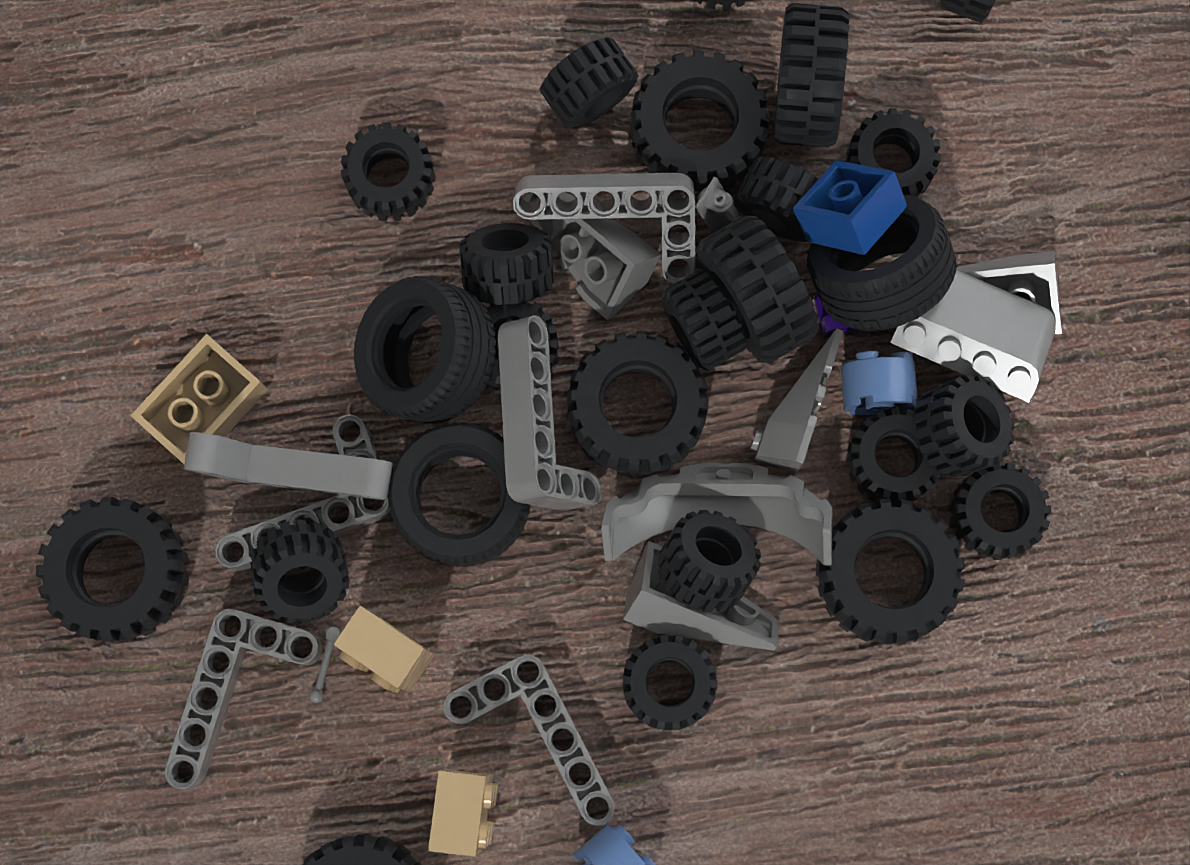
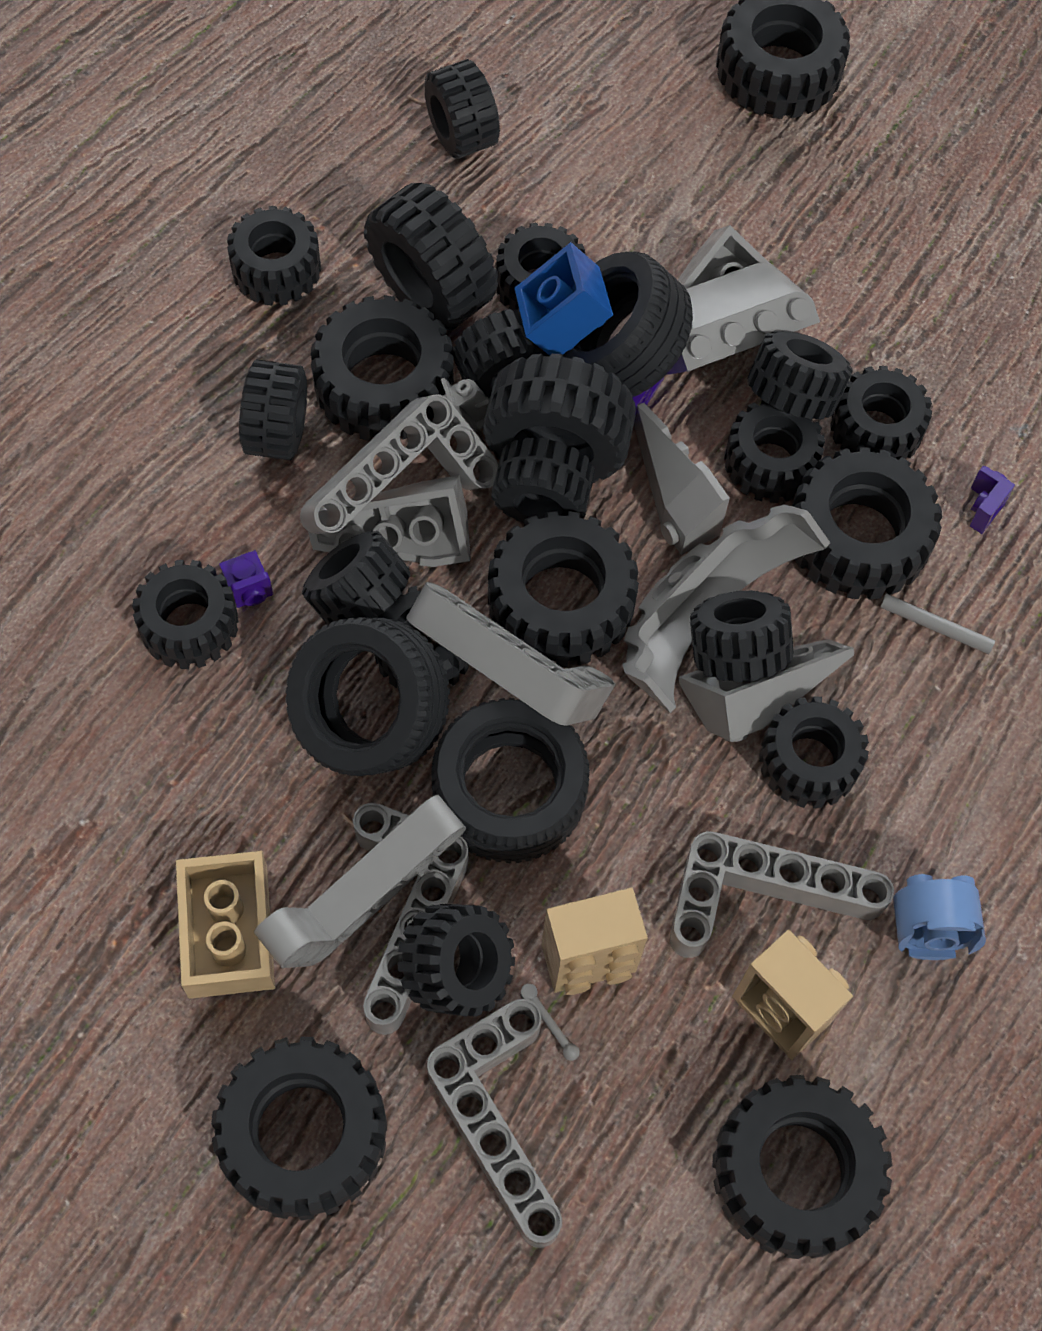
camera: 55 degrees left, 15 degrees down
(455, 184) = (247, 579): none -> dark purple bracket
(863, 689) = (938, 624): none -> light grey bar
(878, 383) = (707, 412): medium blue brick -> none
(1000, 651) = (993, 493): none -> dark purple bracket

